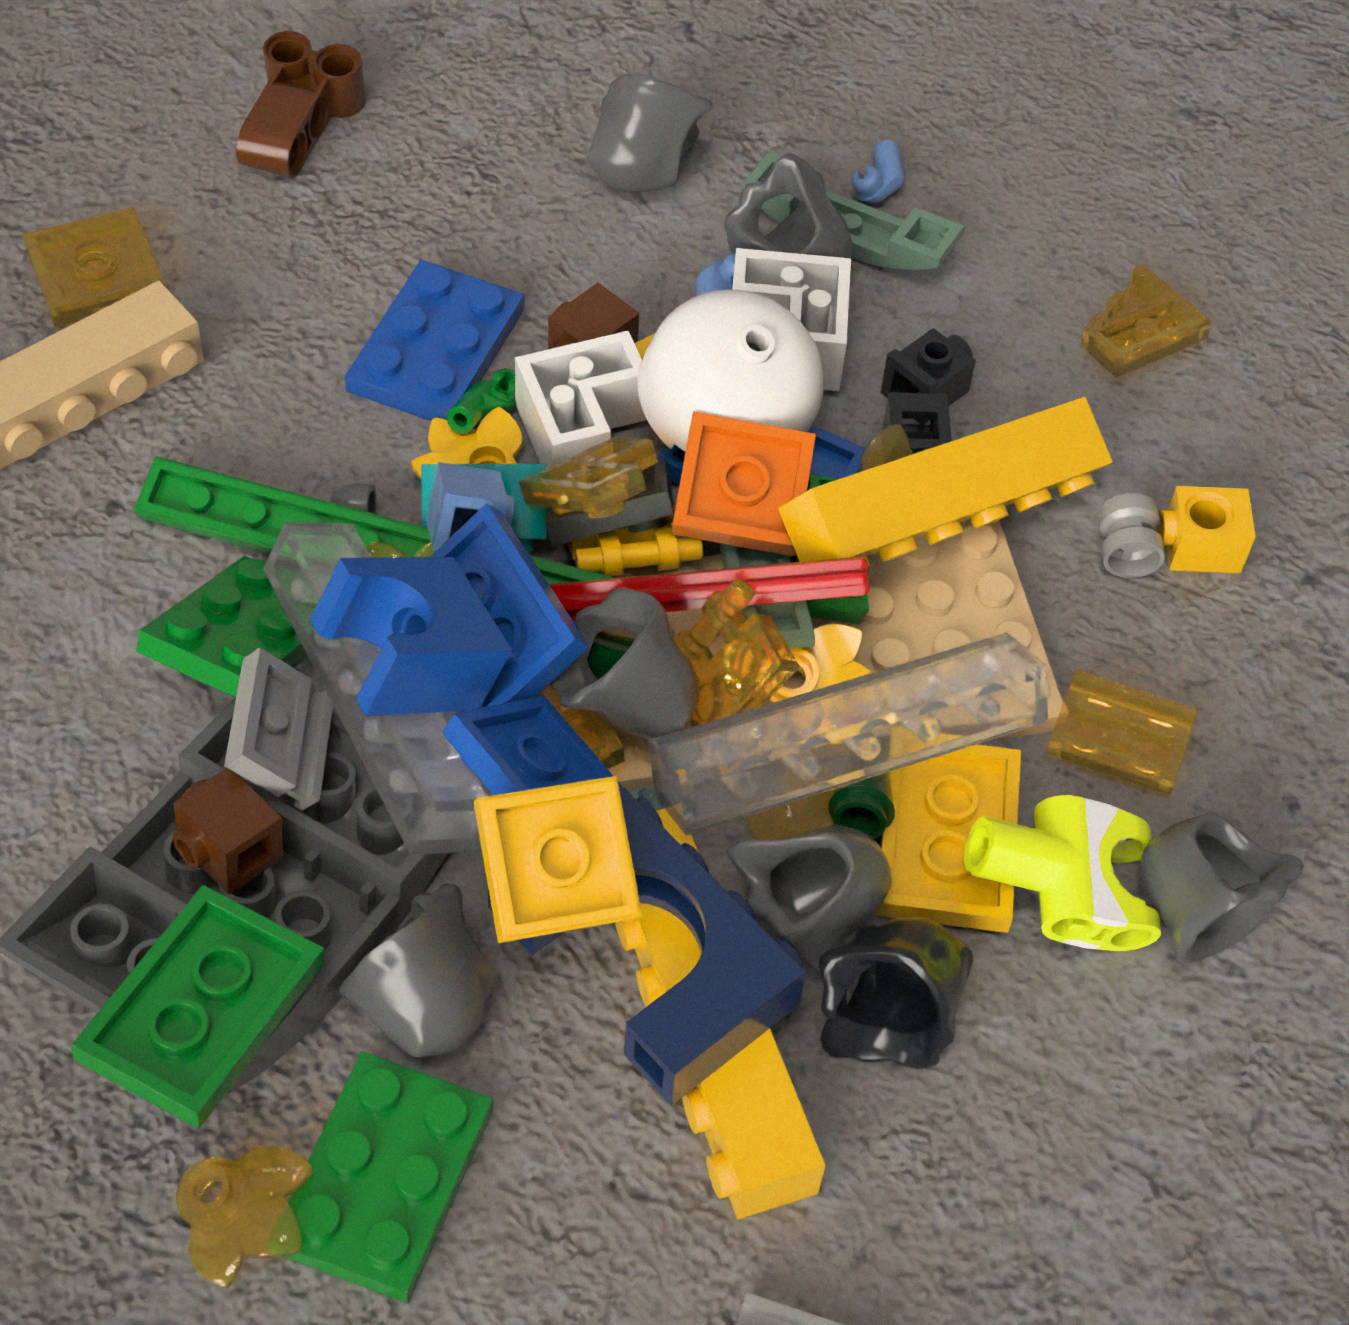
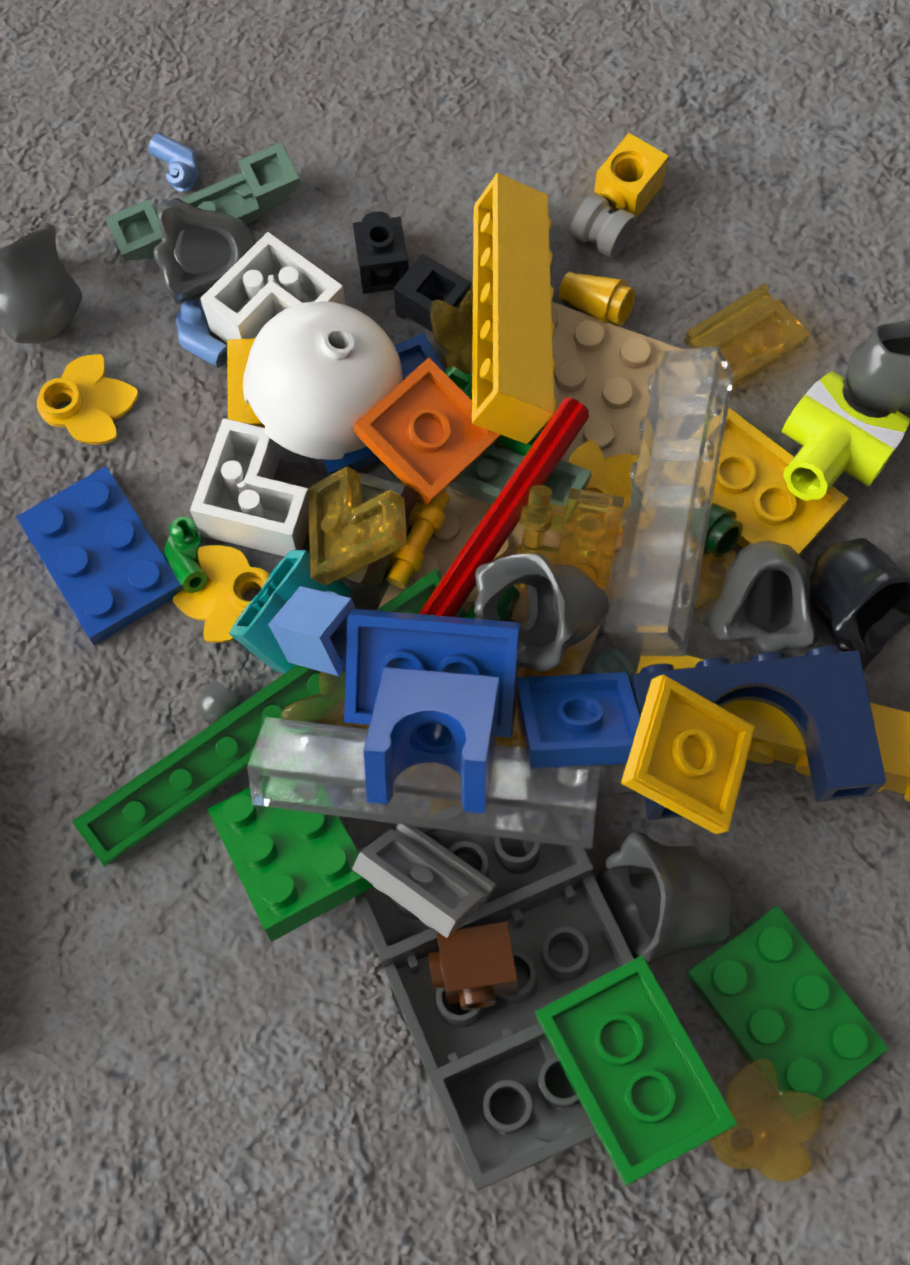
camera: 50 degrees left, 15 degrees up
(579, 246) = (92, 397): none -> yellow plate
(590, 317) = (180, 443): reddish brown brick -> none
(1048, 578) = (598, 296): none -> yellow cone
(1143, 325) = (434, 97): clear yellow wing -> none

